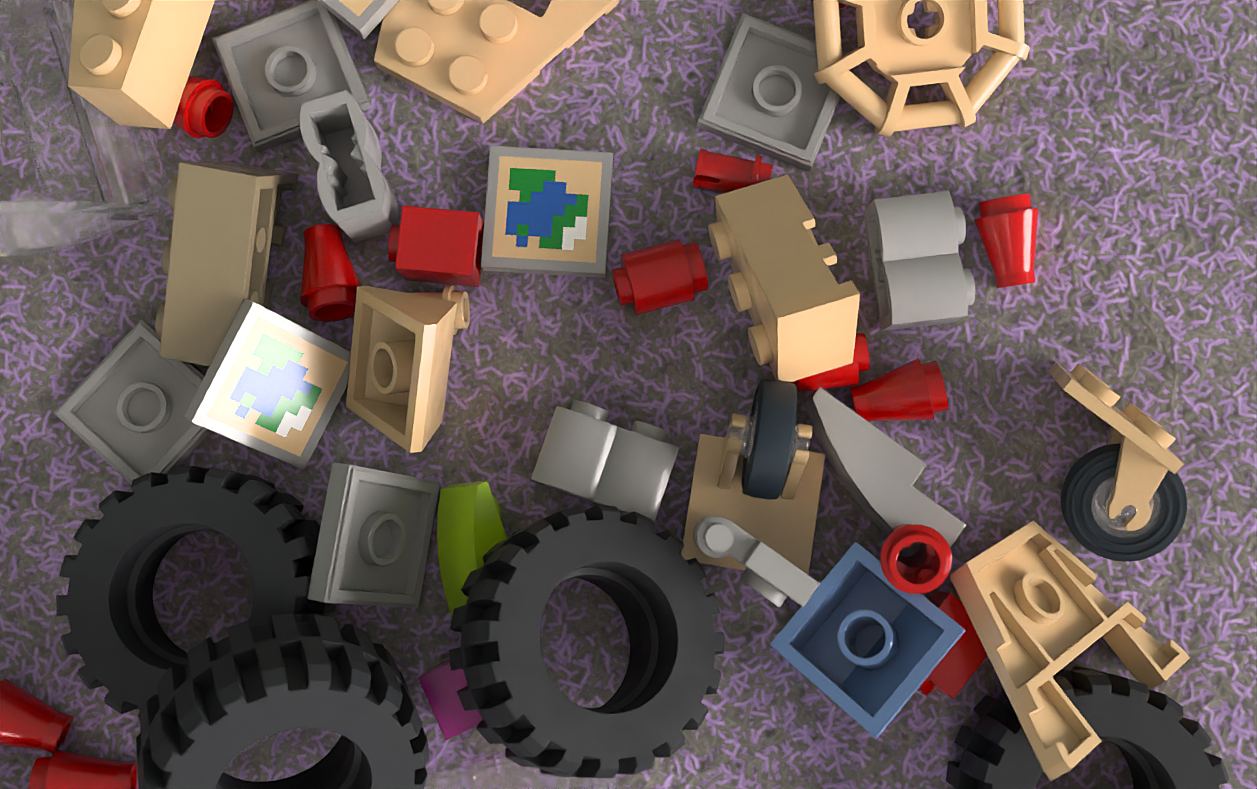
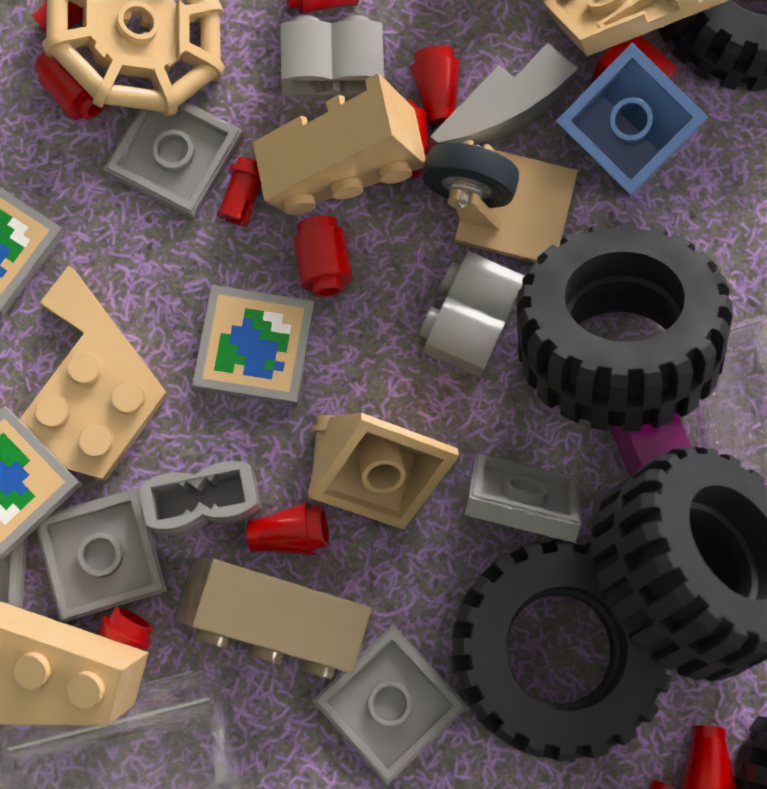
camera: 90 degrees left, 5 degrees down
(271, 385) = (386, 578): tile -> none
(437, 246) = (277, 433): red brick -> none
(466, 531) = (528, 429): lime slope -> none
(765, 568) = (569, 193): light grey plate -> none
(925, 568) = (574, 72): red cone -> none

